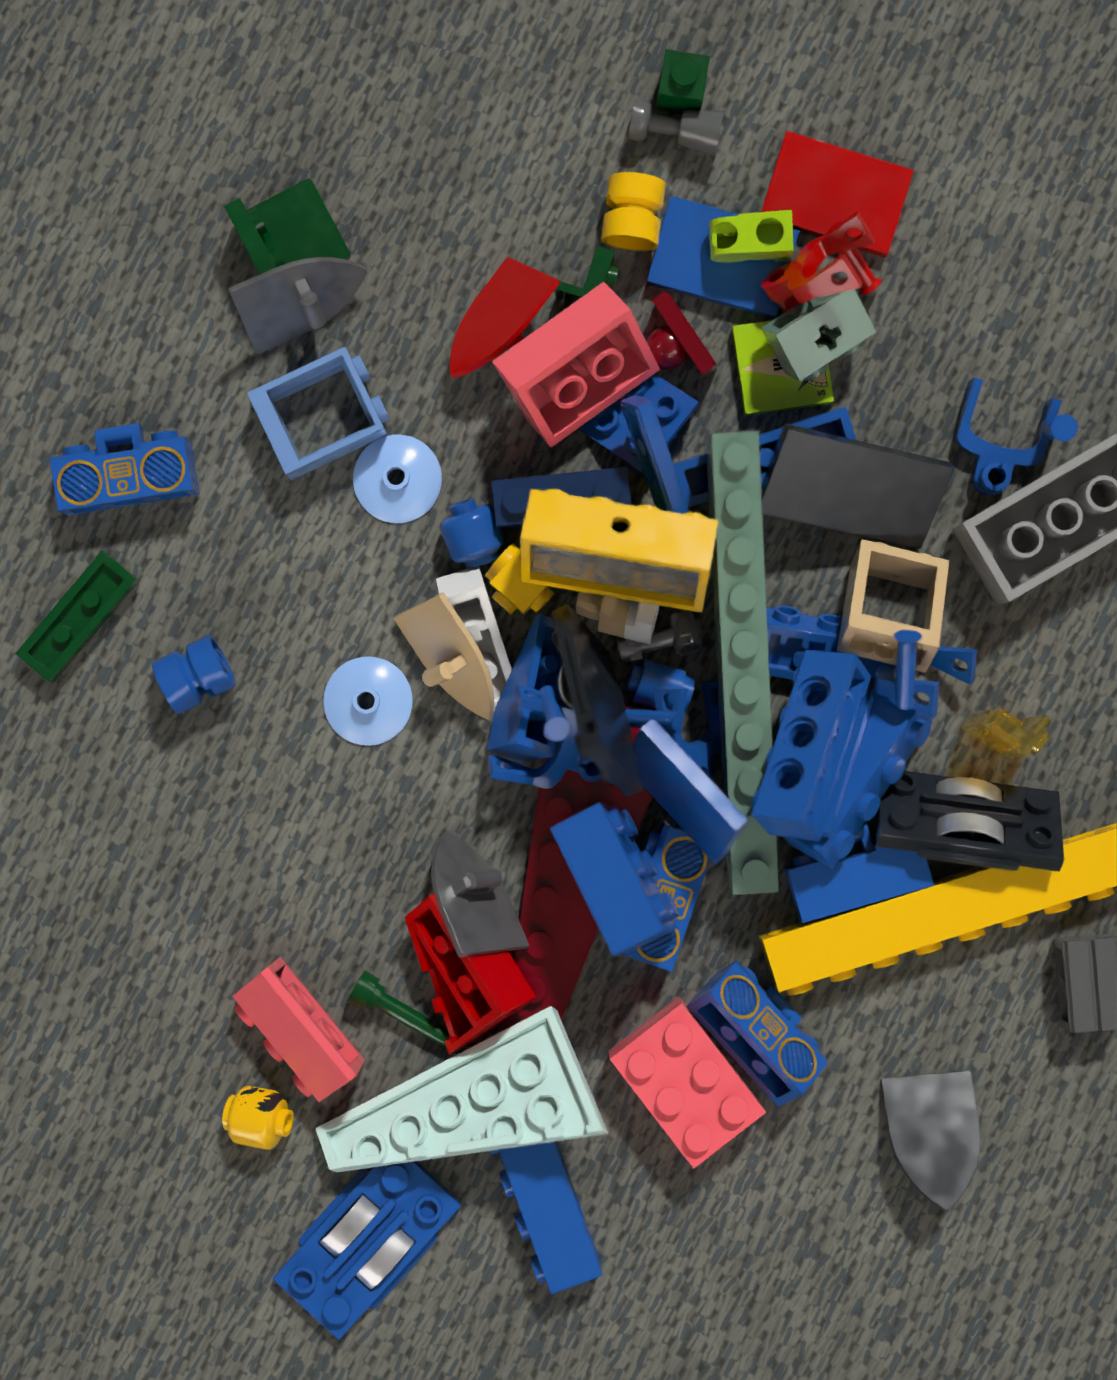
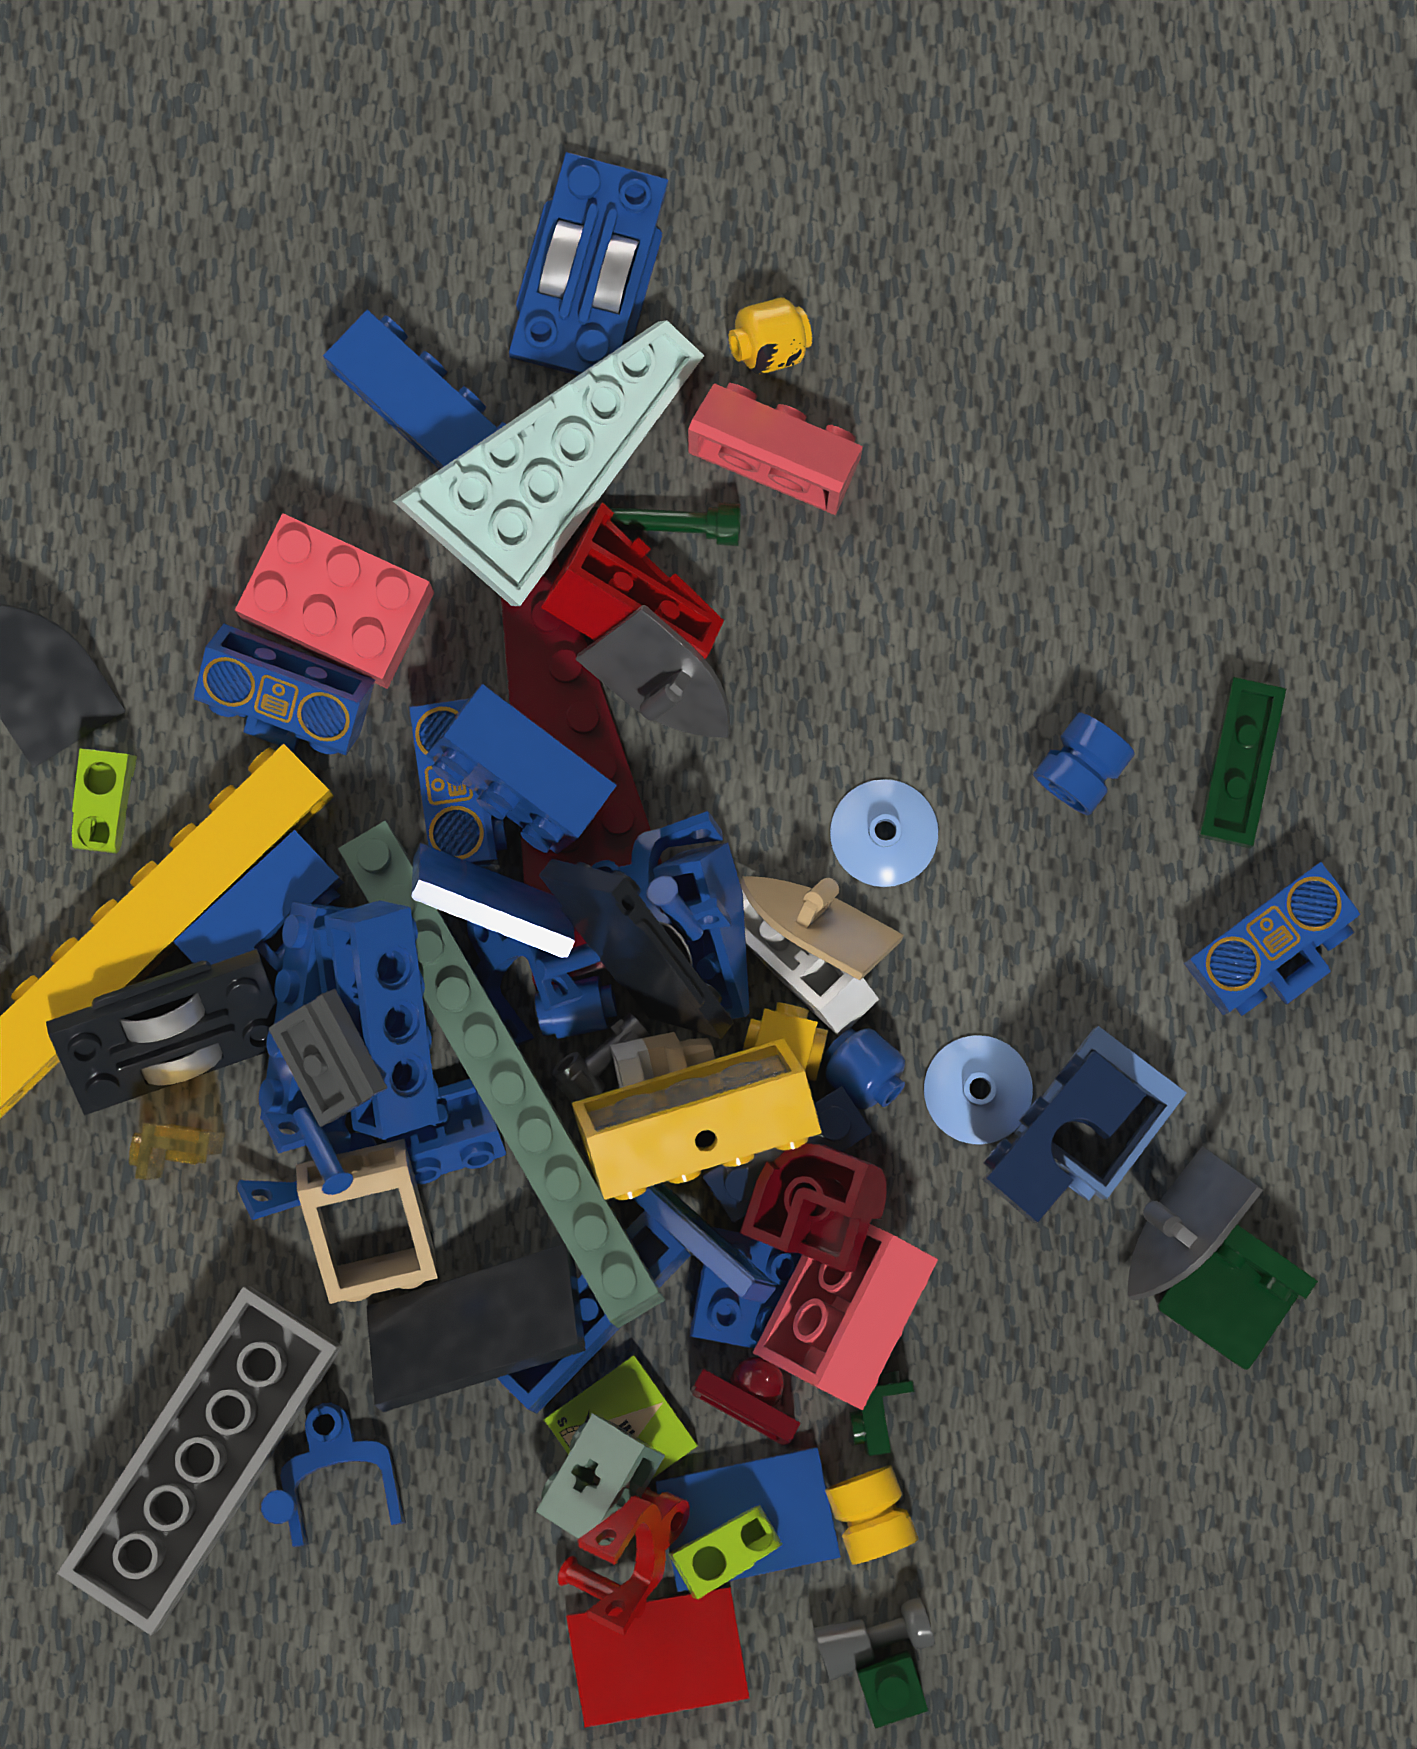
camera: 155 degrees right, 5 degrees down
(392, 396) = (1089, 1094): none -> dark blue arch
(499, 315) = (959, 1321): red shield -> none
(561, 442) = (816, 1204): none -> dark red brick
(867, 734) = (327, 1057): none -> dark grey plate
(932, 1020) = (101, 799): none -> lime leg

